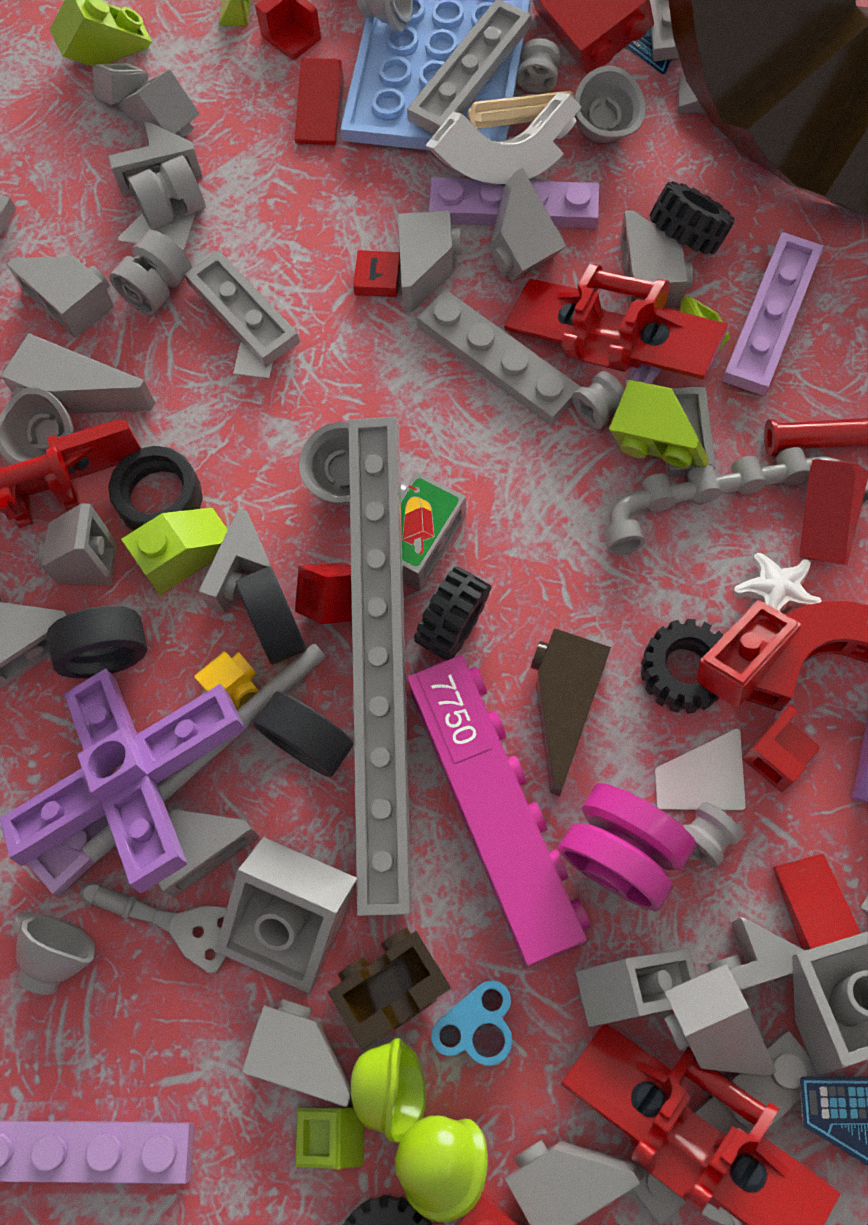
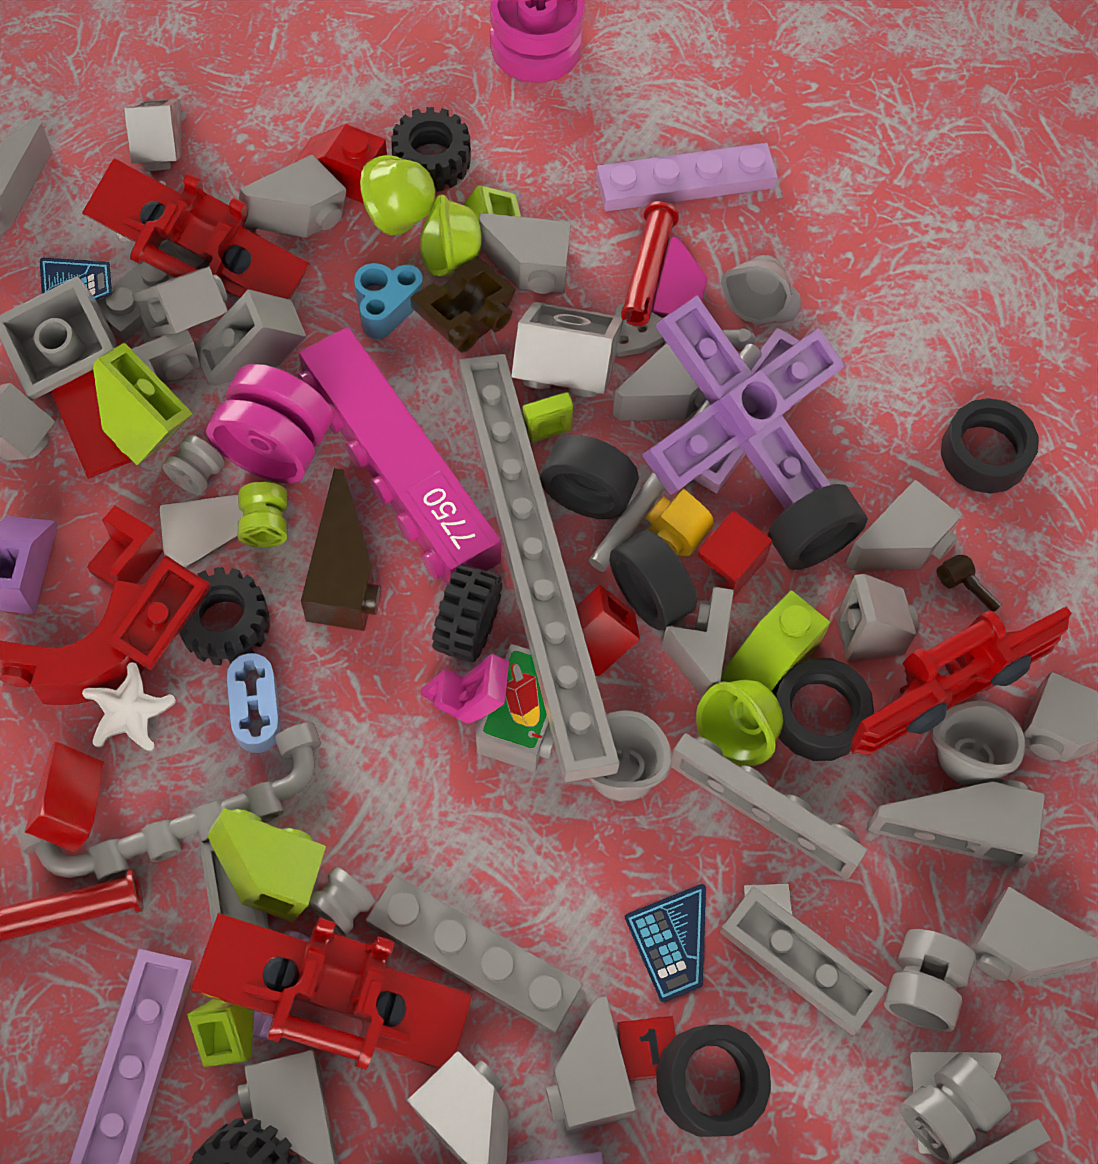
camera: 160 degrees right, 5 degrees down
(137, 980) = (679, 280): none -> dark pink slope
(164, 1016) = (660, 220): none -> red pin
(183, 639) = (735, 551): none -> red panel
(227, 484) = (741, 721): none -> lime helmet
(241, 429) = (782, 815): none -> light grey plate
(325, 215) = (754, 1081): none -> black tyre
(328, 826) = (548, 417): none -> lime tile
(338, 347) = (672, 941): none -> dark blue sticker
(464, 539) = (472, 695): none -> dark pink slope
(640, 763) = (262, 514): none -> lime wheel
(672, 583) = (241, 703): none -> light blue beam
(769, 895) = (135, 404): none -> lime slope

